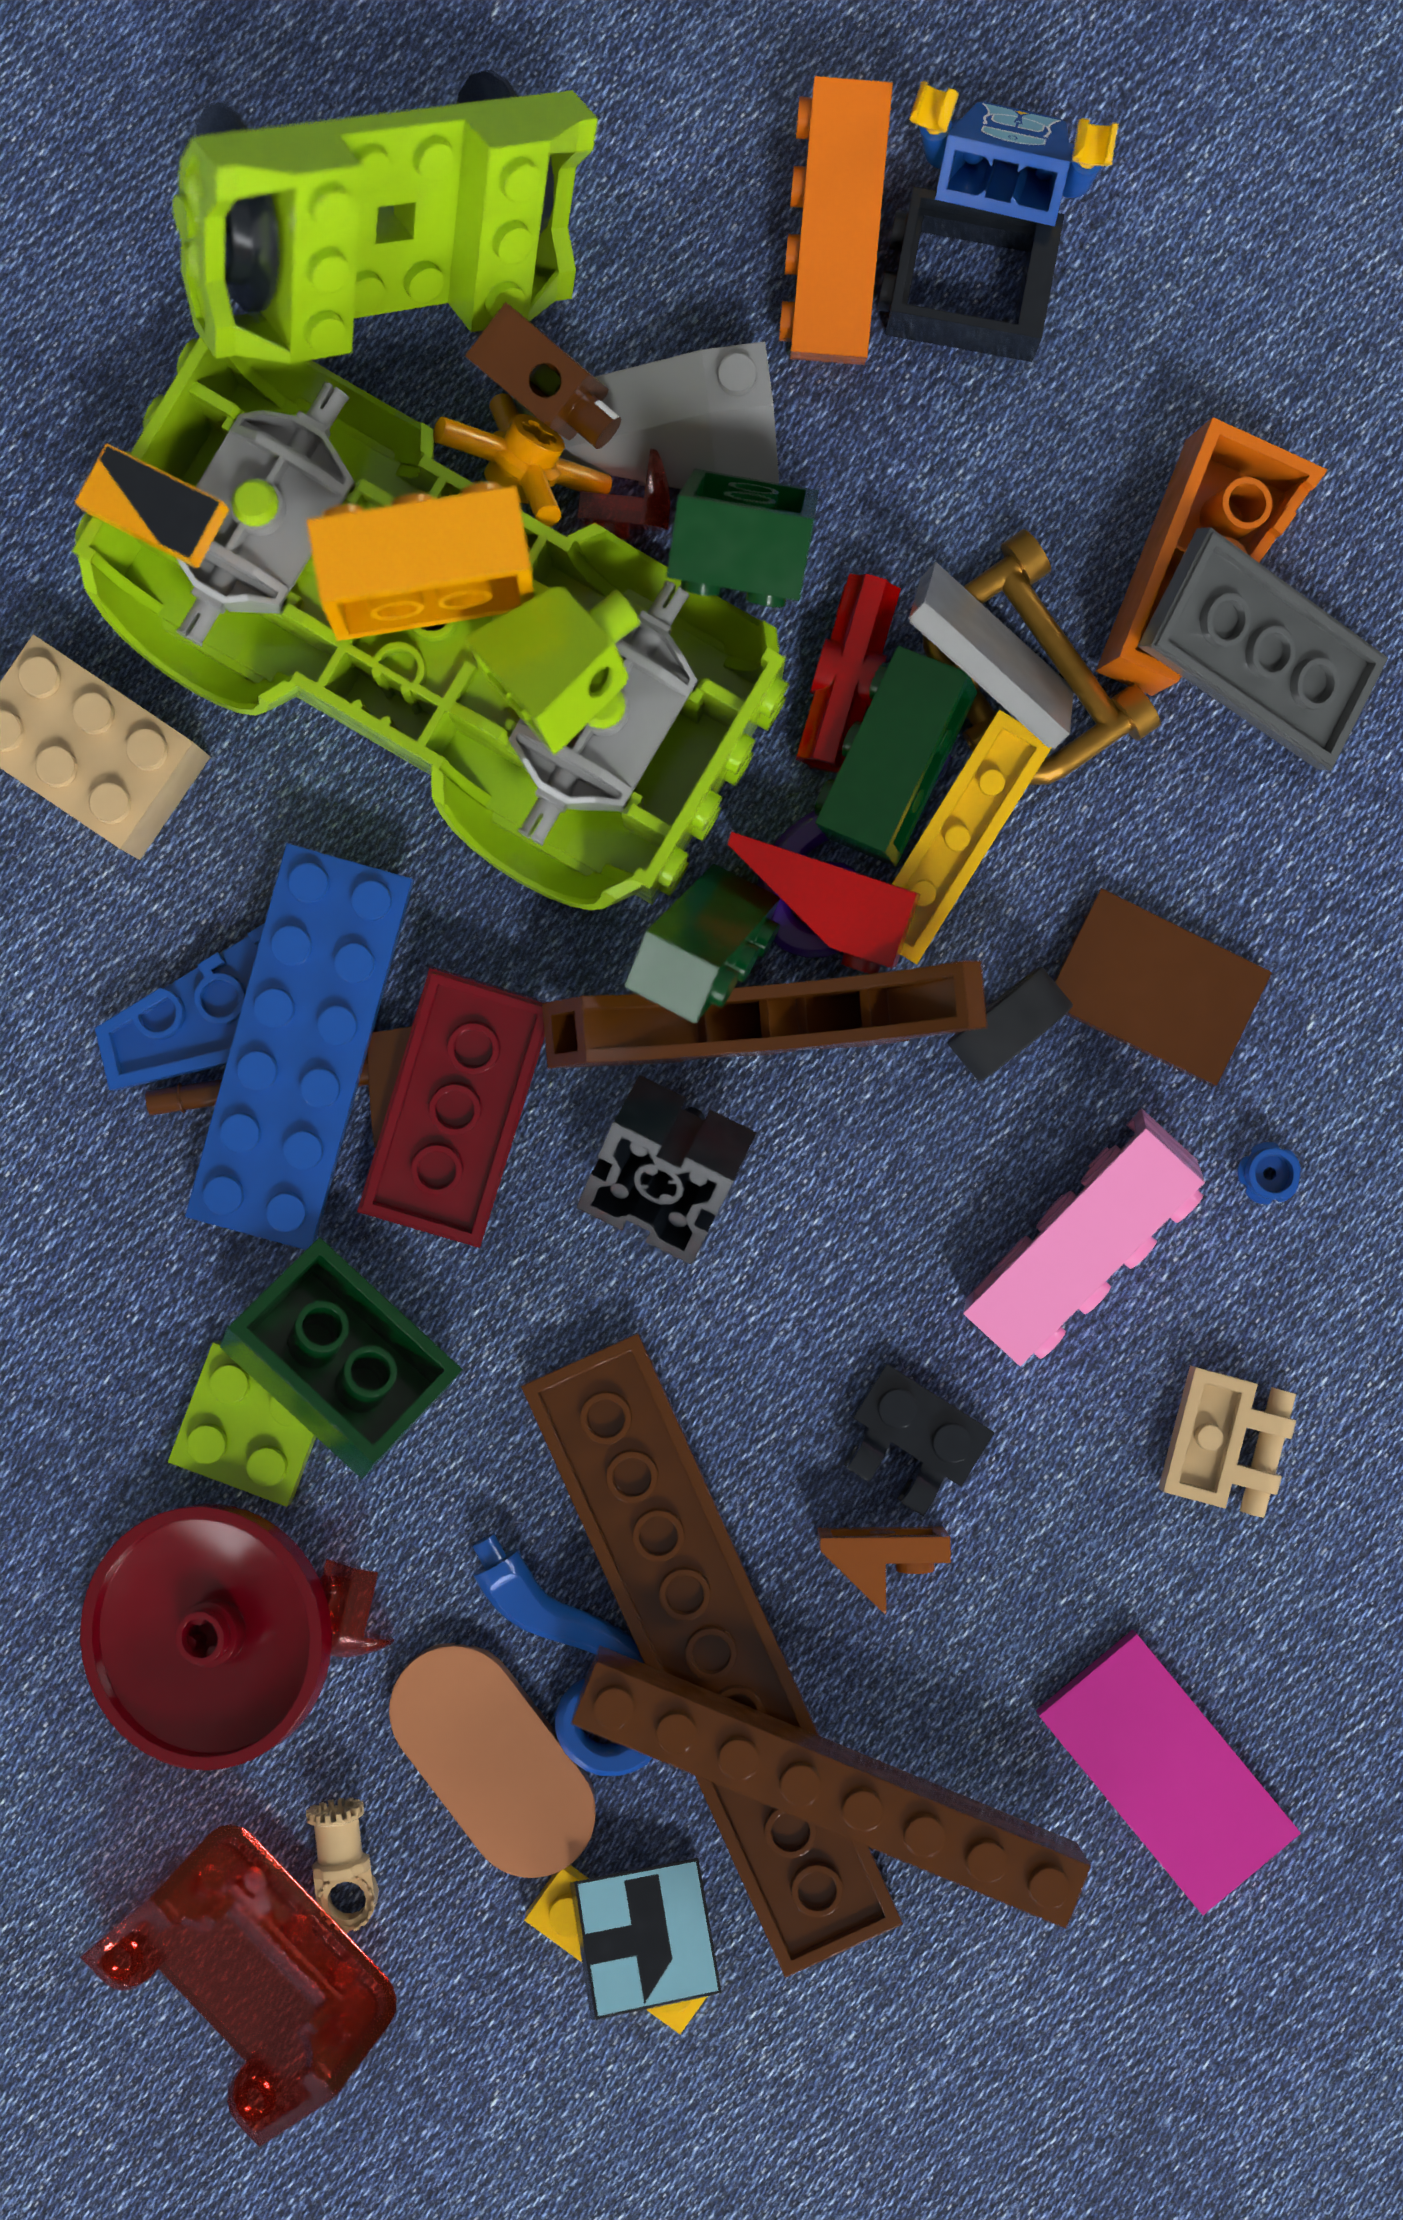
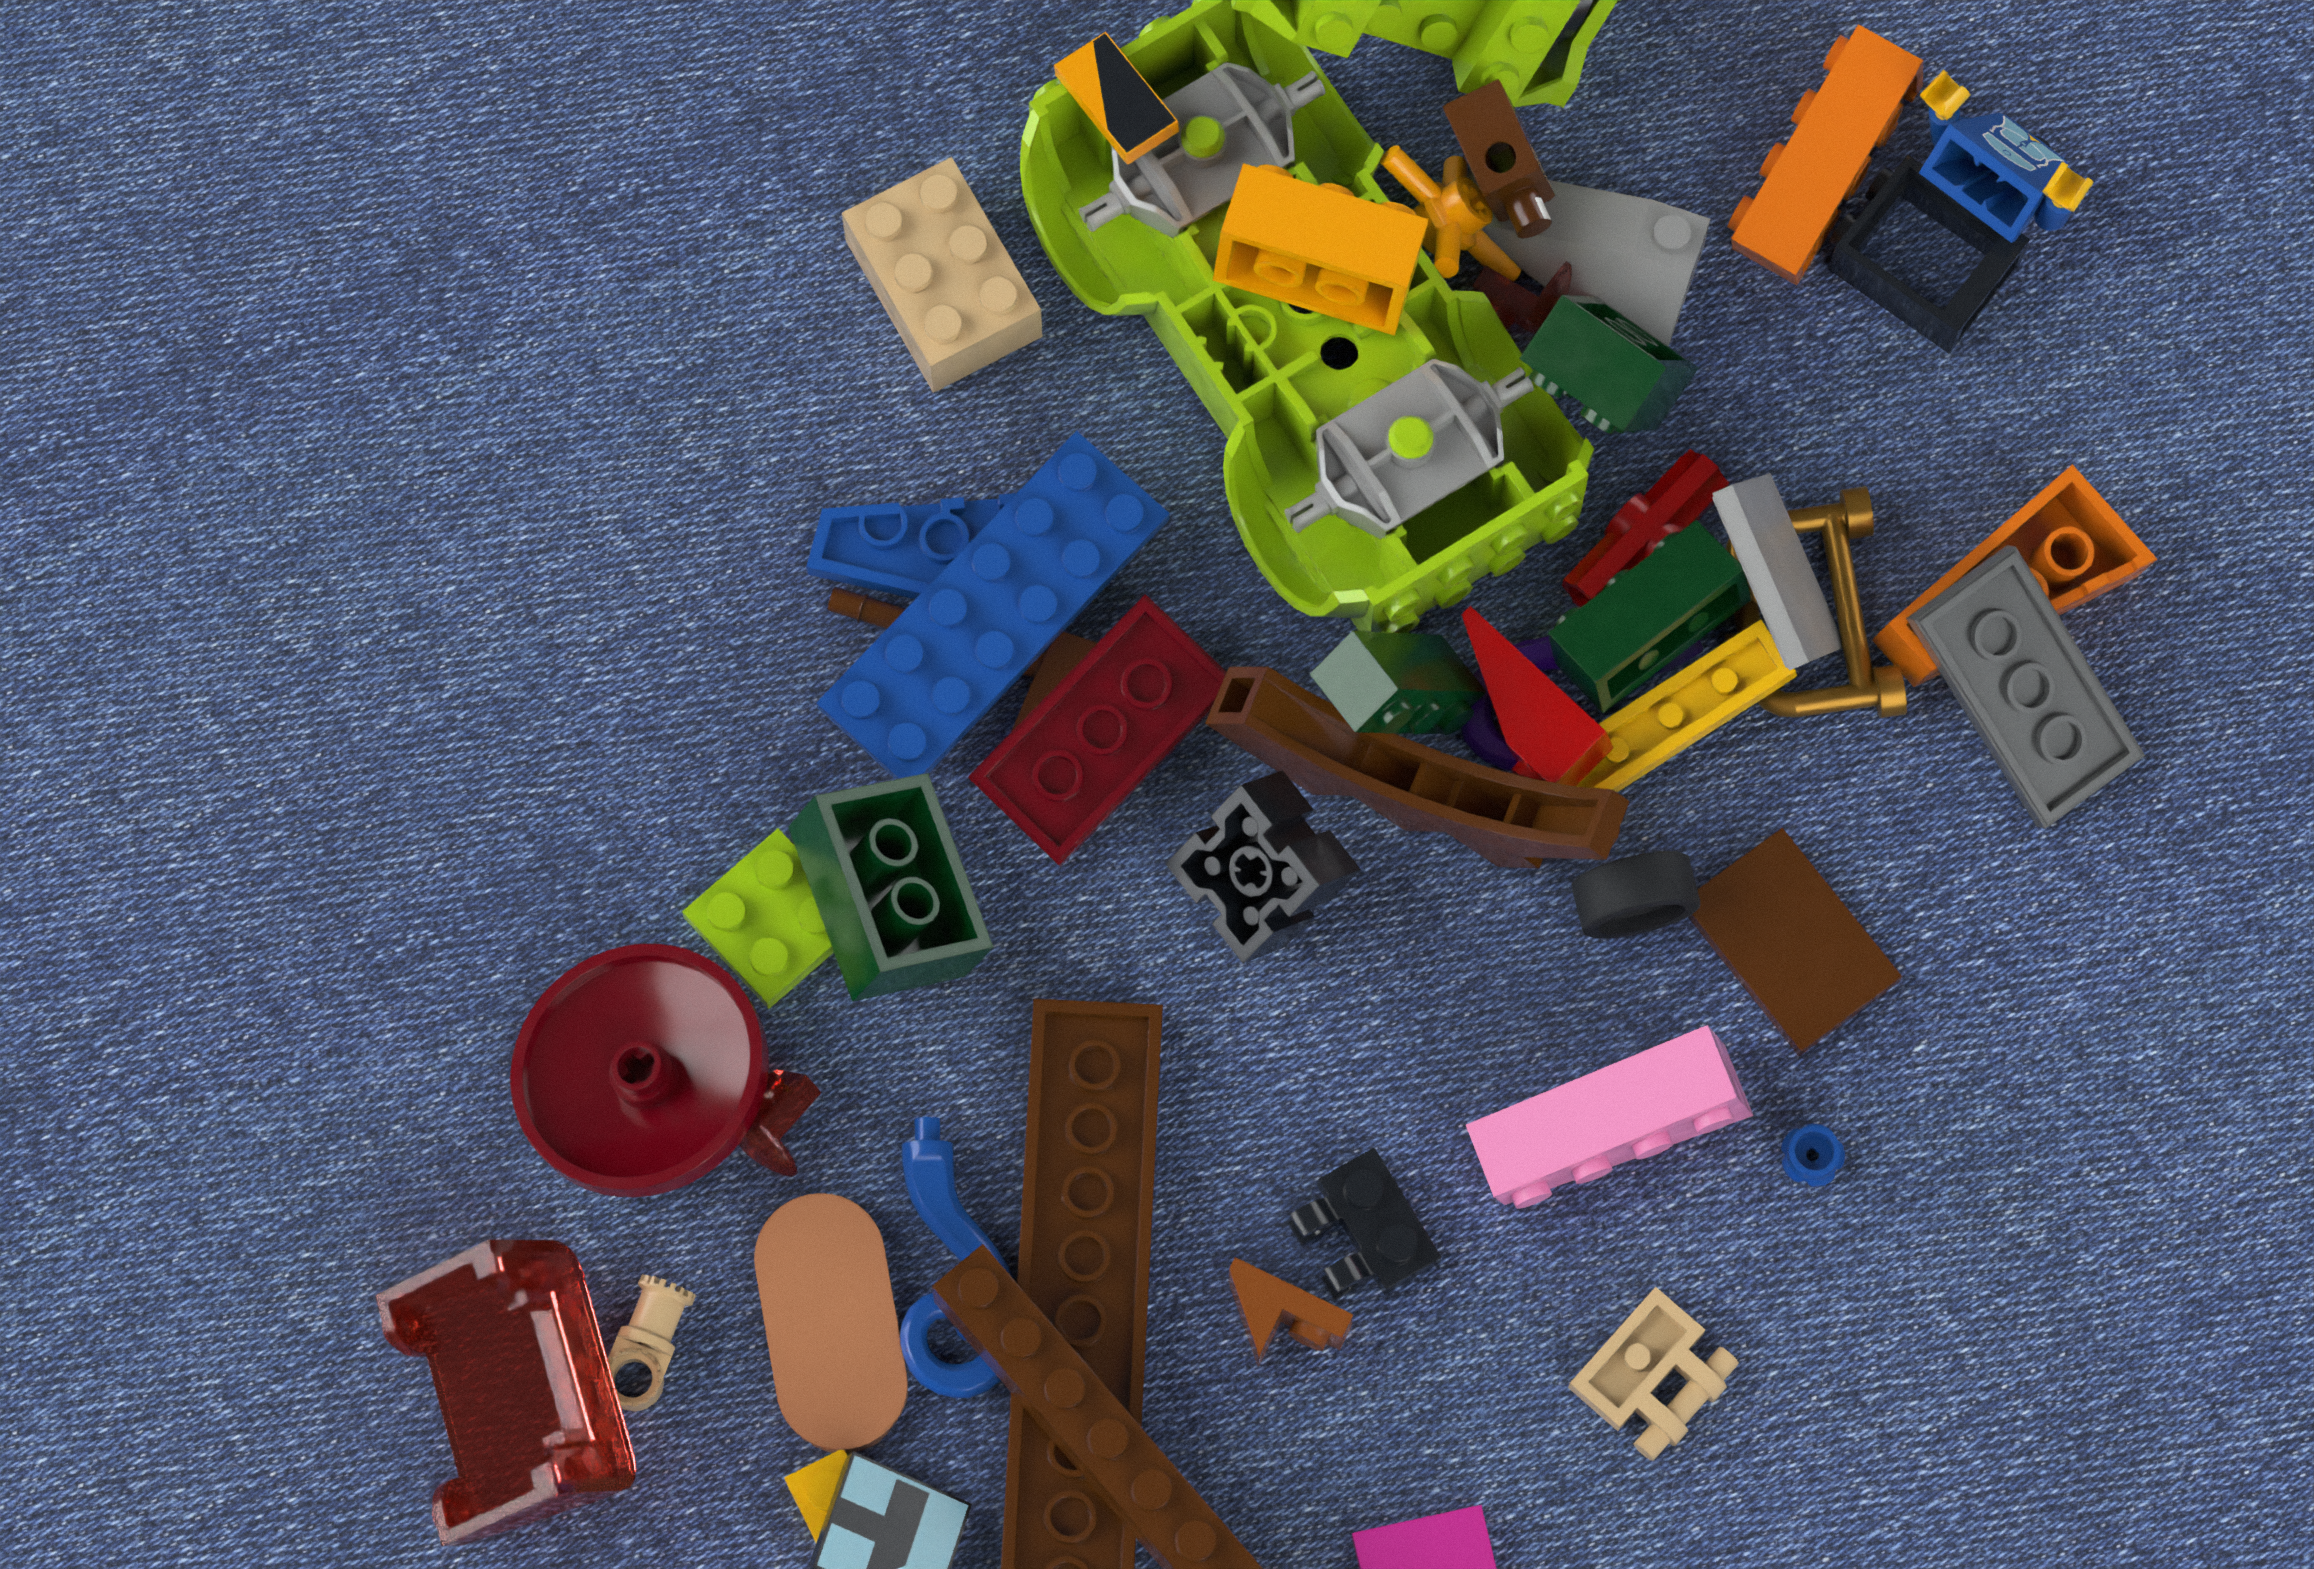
camera: 30 degrees right, 15 degrees down
(556, 660) = (1390, 379): lime torso -> none

